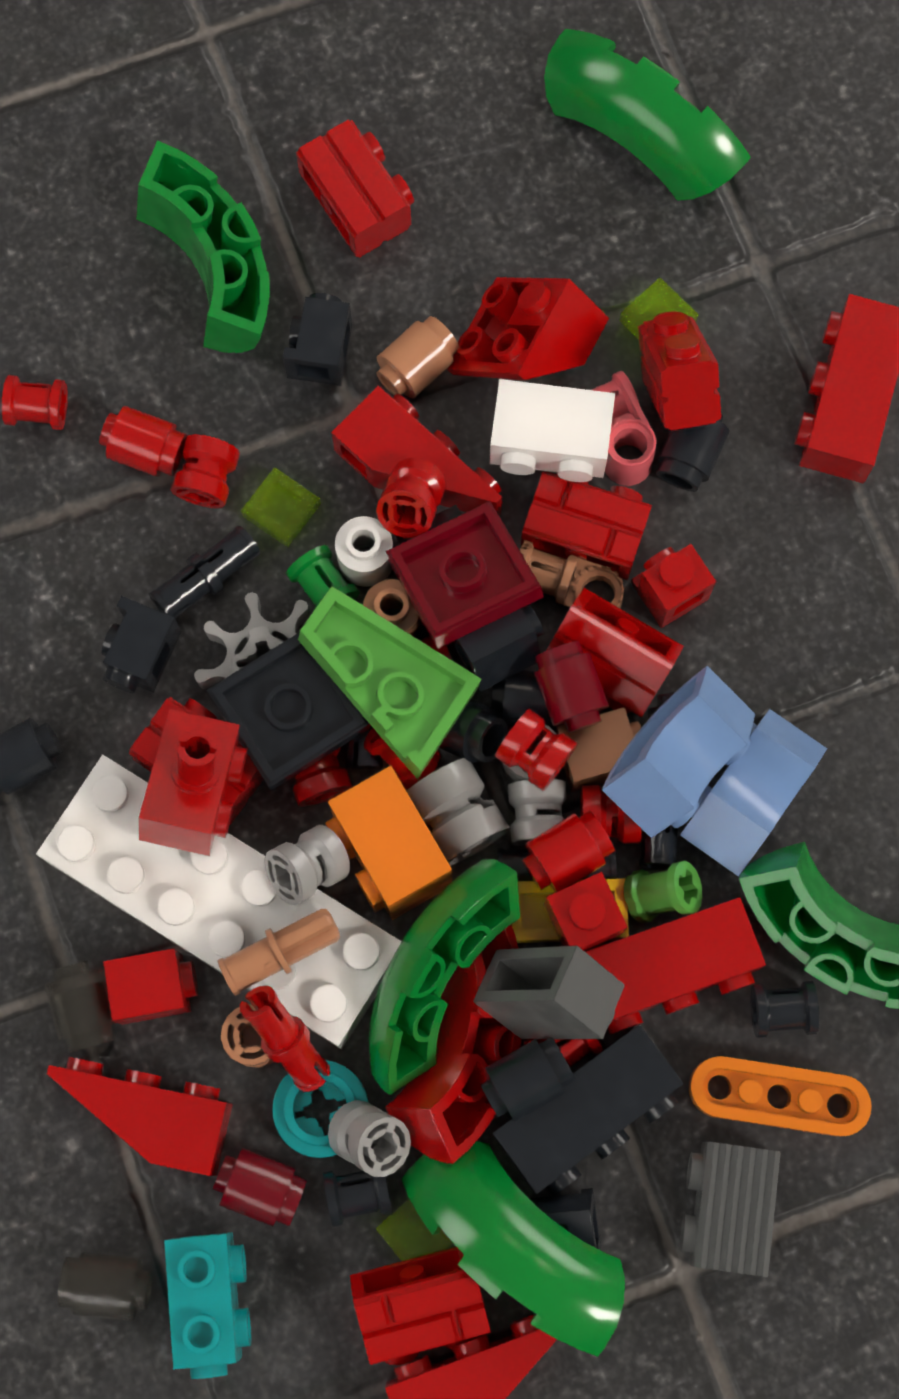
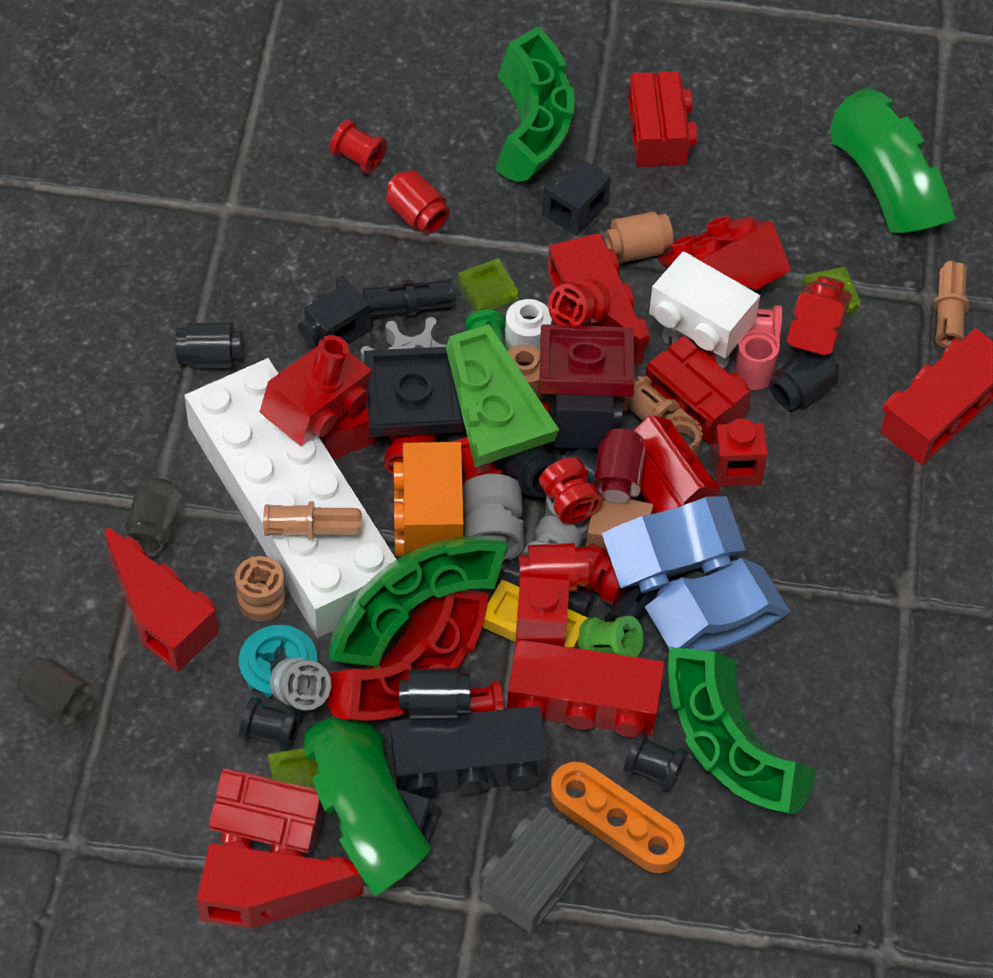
camera: 25 degrees right, 20 degrees down
(150, 986) = (208, 523): red brick -> none
(203, 1303) = (119, 730): teal brick -> none
(205, 471) = (445, 239): red wheel -> none
(259, 1188) = (203, 685): dark red brick -> none
(285, 1038) = (281, 583): red pin -> none
(303, 866) = (364, 478): light grey wheel -> none
(549, 993) = (487, 643): dark grey brick -> none
(797, 266) = (951, 303): none -> nougat axle

